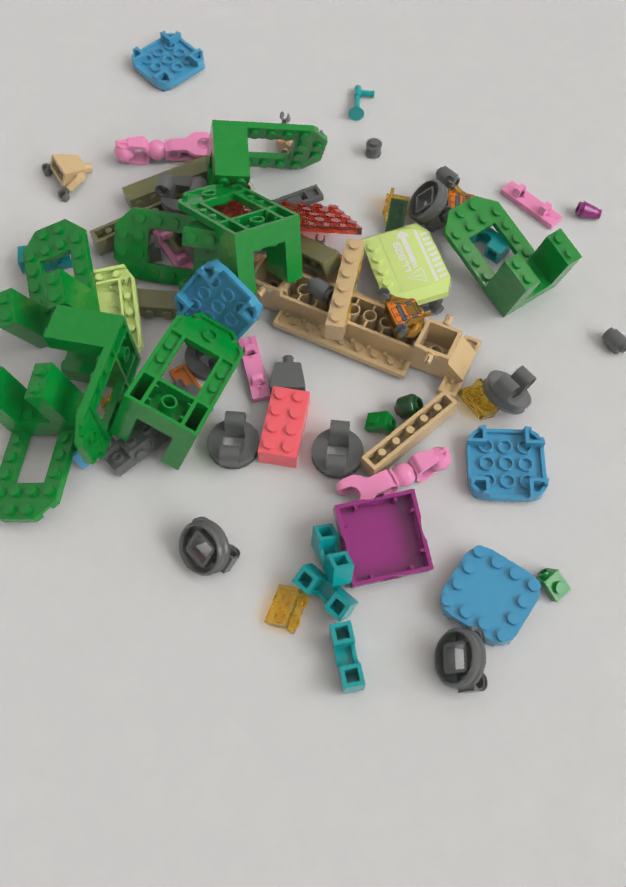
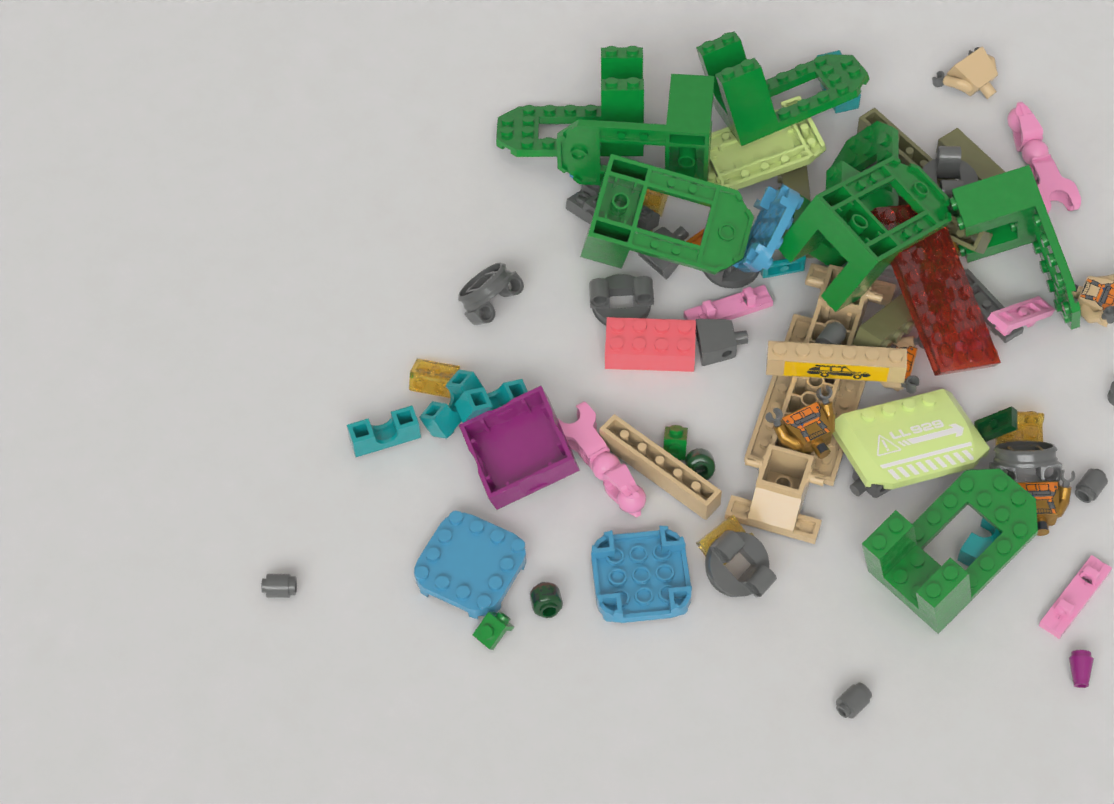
camera: 85 degrees right, 5 degrees down
(307, 181) = (1020, 314): none -> bright pink hinge
(336, 465) = (627, 384): dark grey piece -> none
(471, 677) = (390, 527): dark grey piece -> none
(504, 772) = (279, 585): none -> dark grey brick
(527, 537) = (546, 599): none -> dark green head

